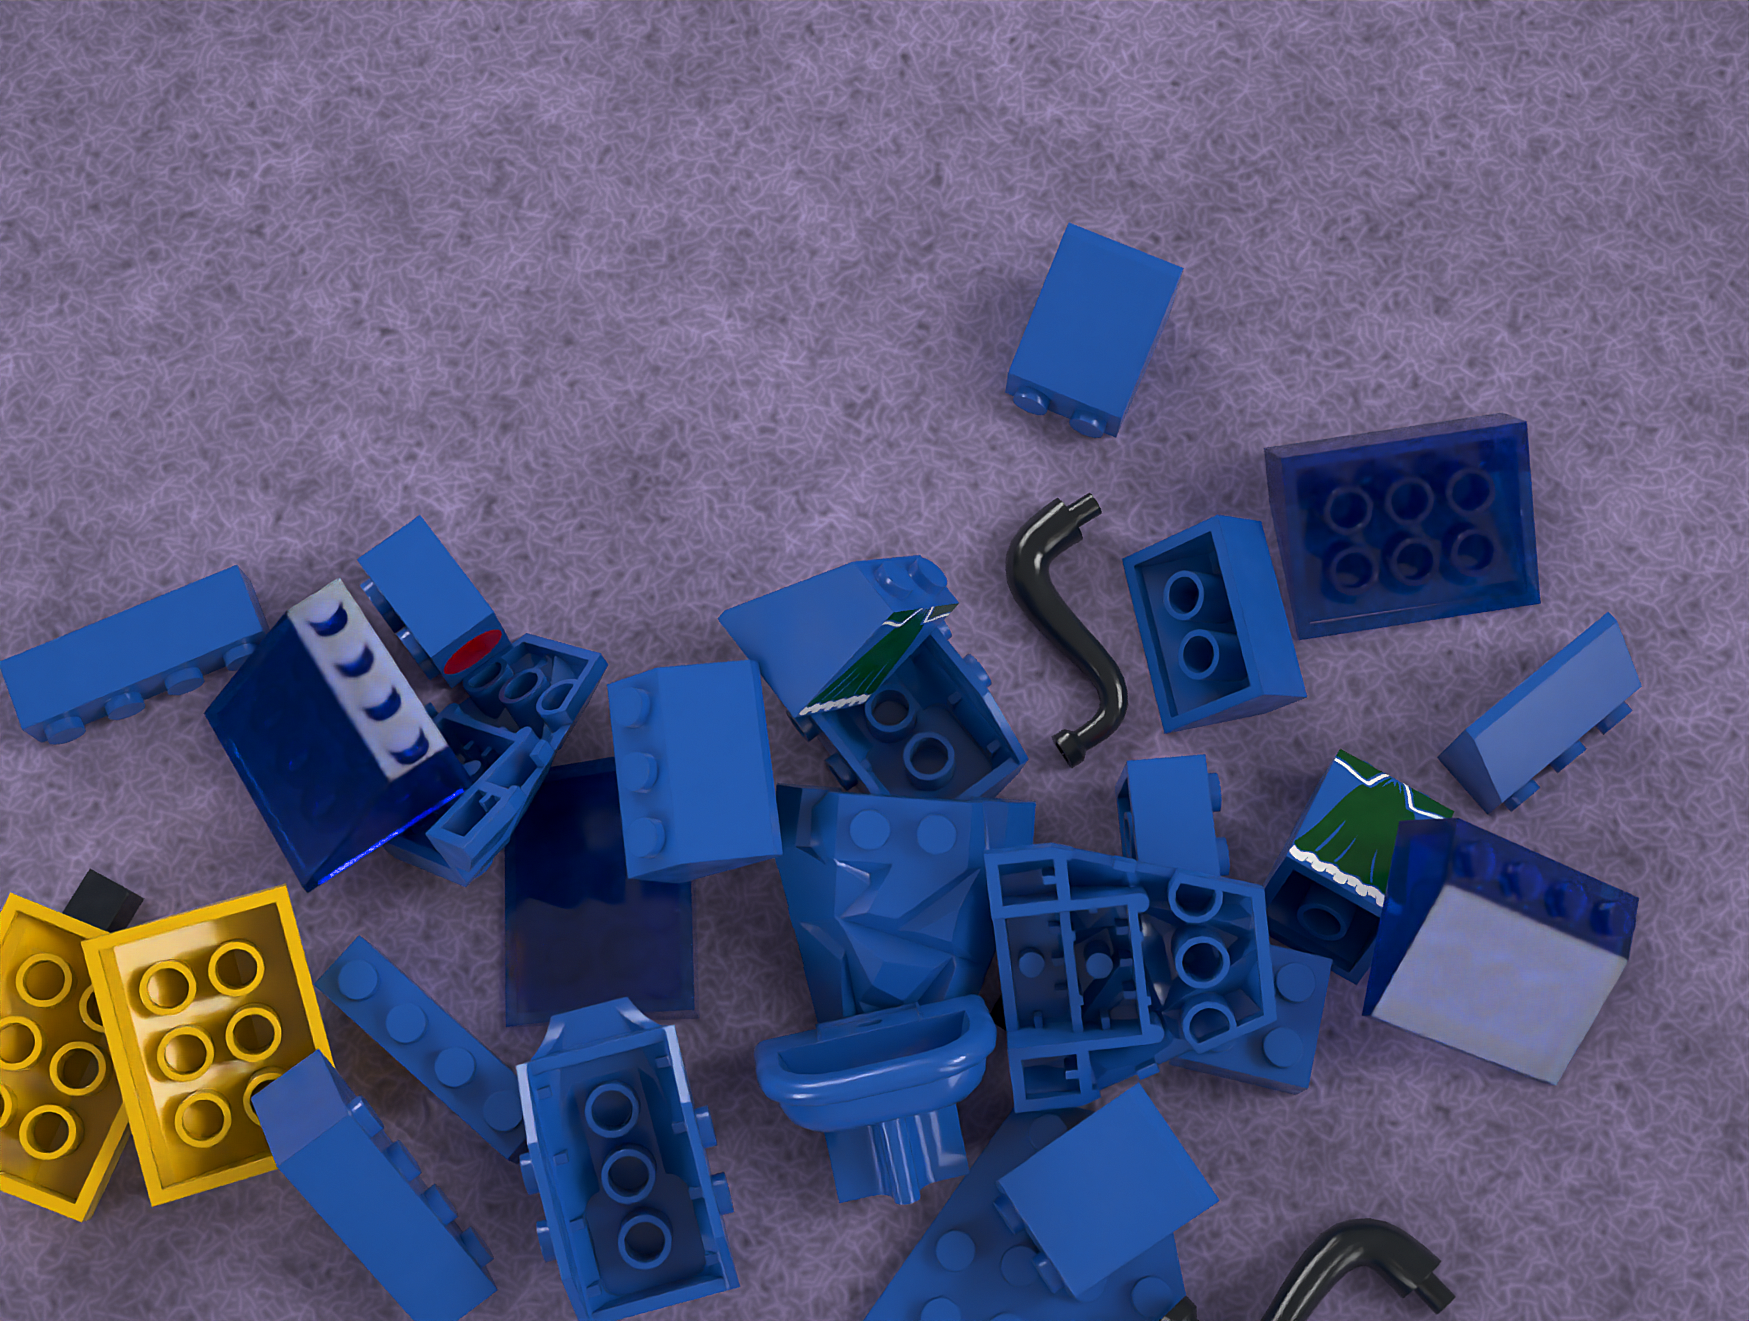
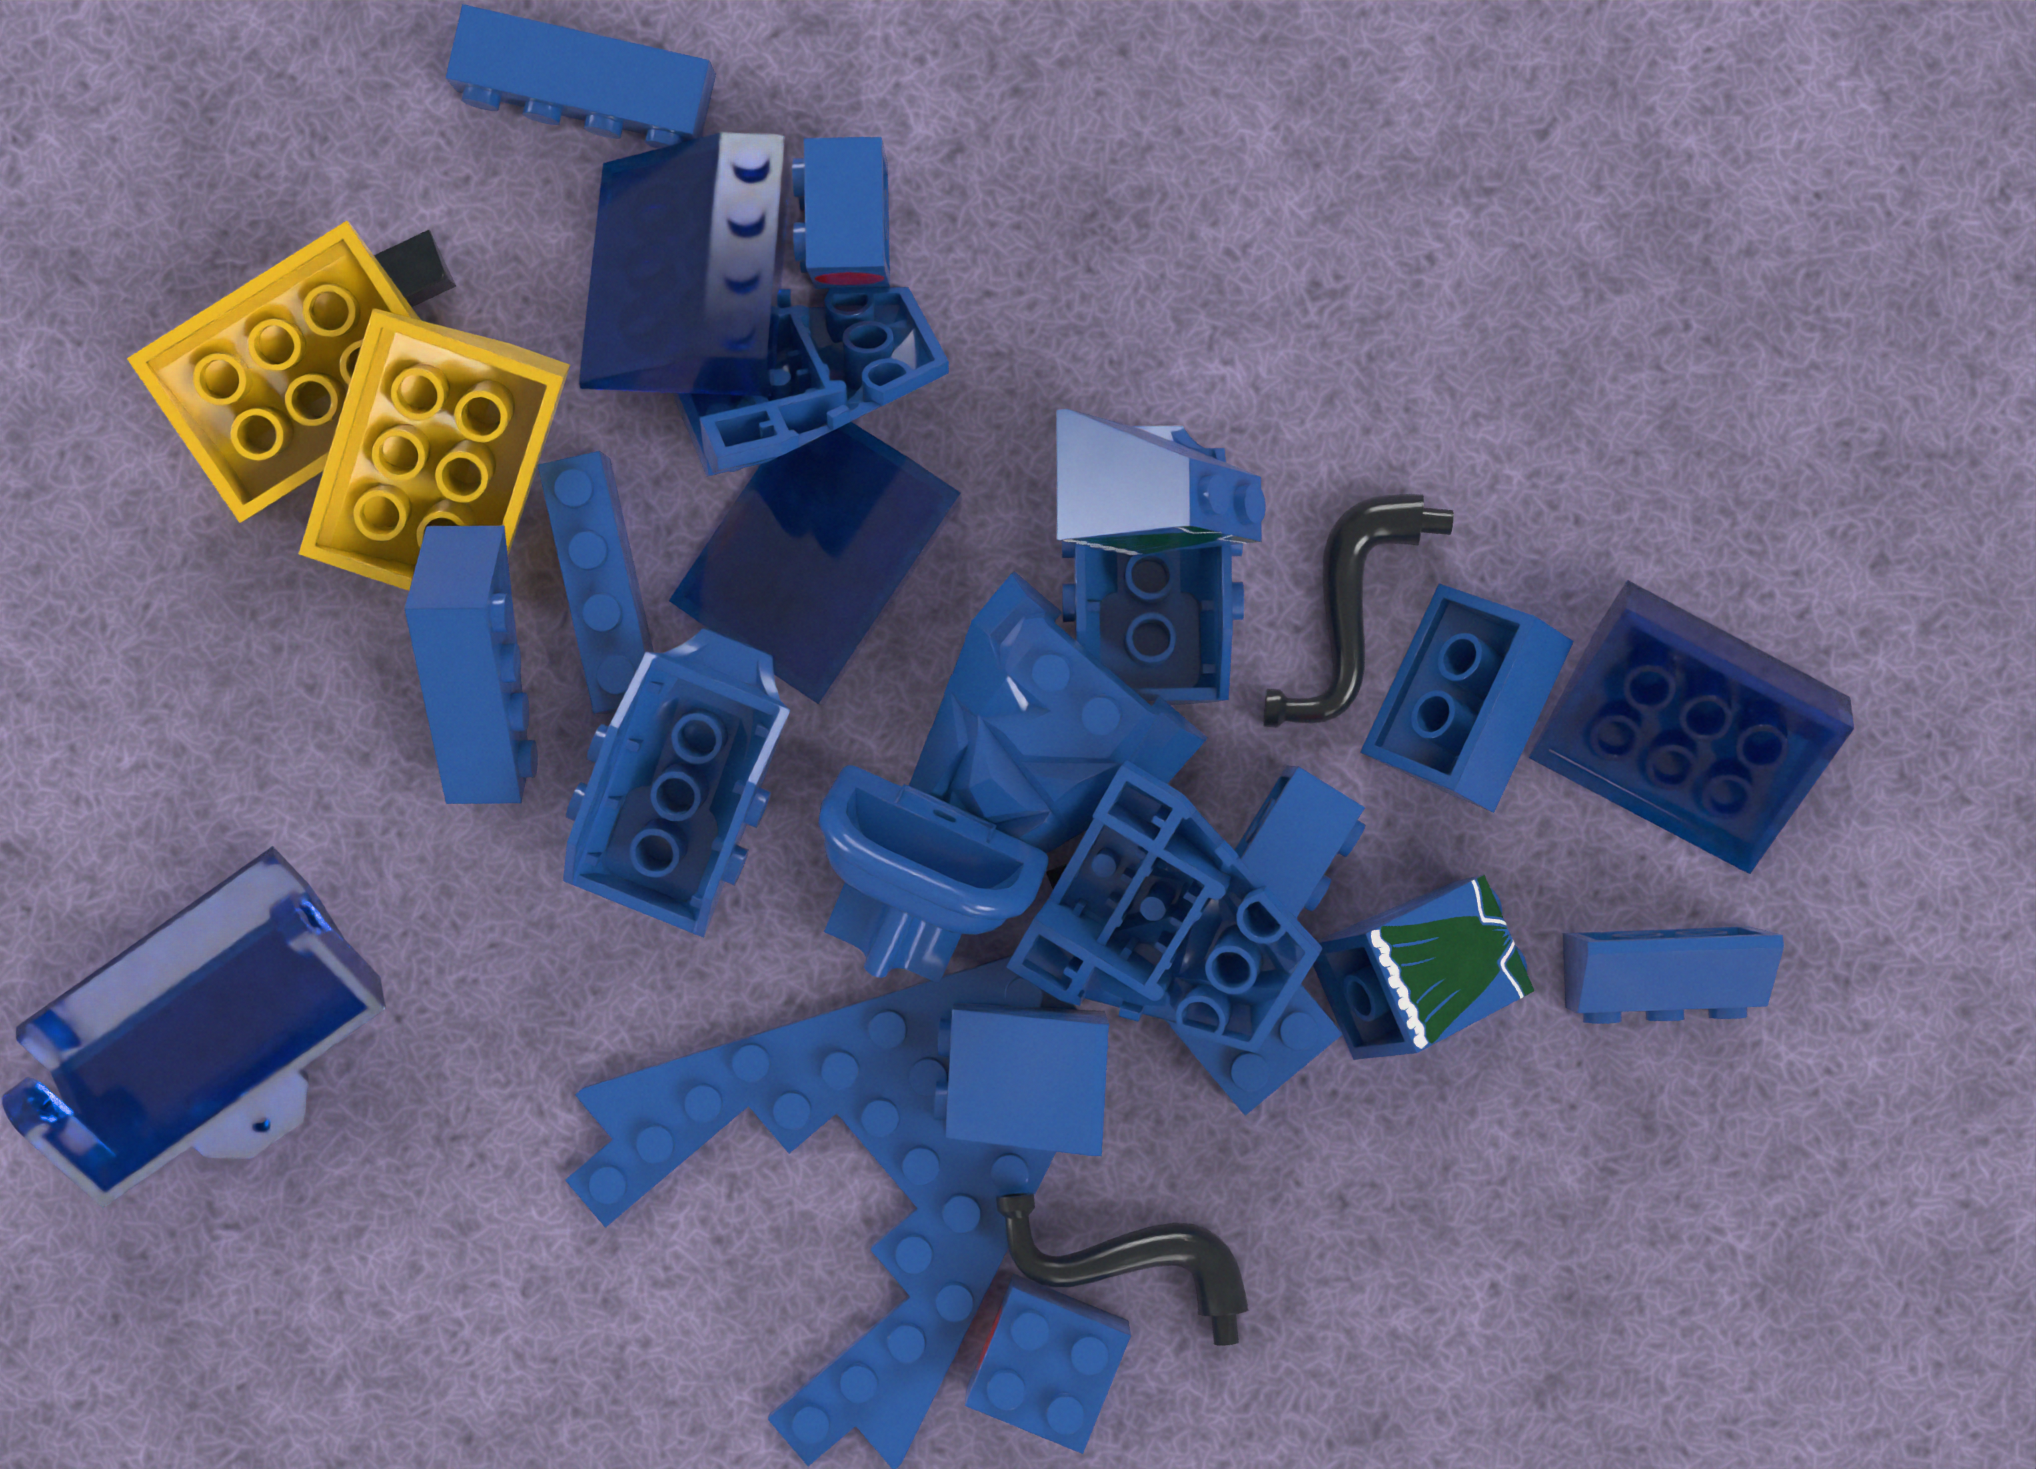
camera: 35 degrees right, 15 degrees up
(693, 770) = (948, 521): blue slope -> none
(1092, 332) = (1560, 377): blue slope -> none
(1494, 947) = (1473, 1121): clear blue slope -> none

